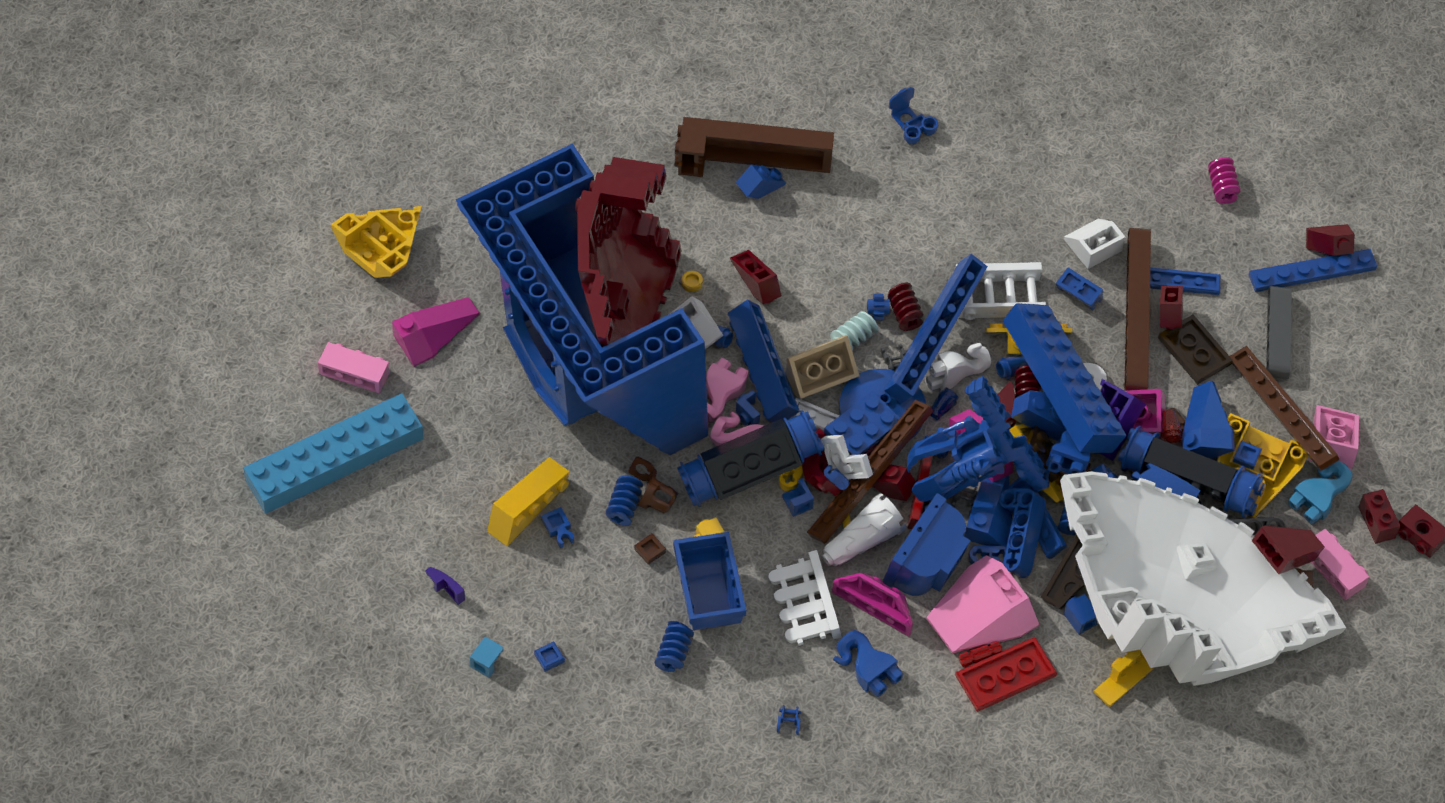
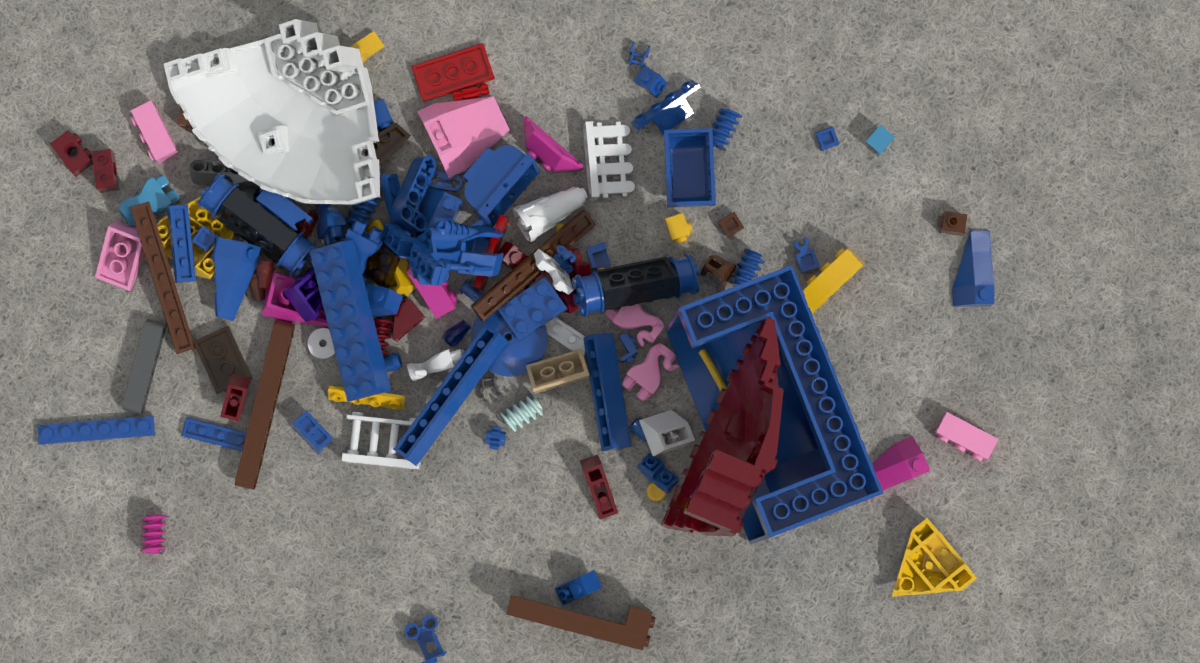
camera: 170 degrees left, 25 degrees up
(333, 453) = (990, 350): dark azure brick -> none
(359, 529) = (975, 273): none -> blue wedge
(390, 579) = (952, 223): none -> reddish brown brick
(444, 581) = (912, 216): dark purple slope -> none
(684, 289) = (654, 470): none -> blue slope
(743, 661) = (670, 110): none -> blue bracket
(770, 690) = (650, 81): none -> blue bracket
(871, 665) = (564, 91): blue hips -> none
(905, 306) = (470, 435): dark red piece -> none
(1096, 242) = (287, 482): white slope -> none
(1272, 443) = (181, 243): none -> blue plate
(1287, 547) = (193, 134): dark red slope -> none
(1331, 239) = (71, 454): dark red slope -> none

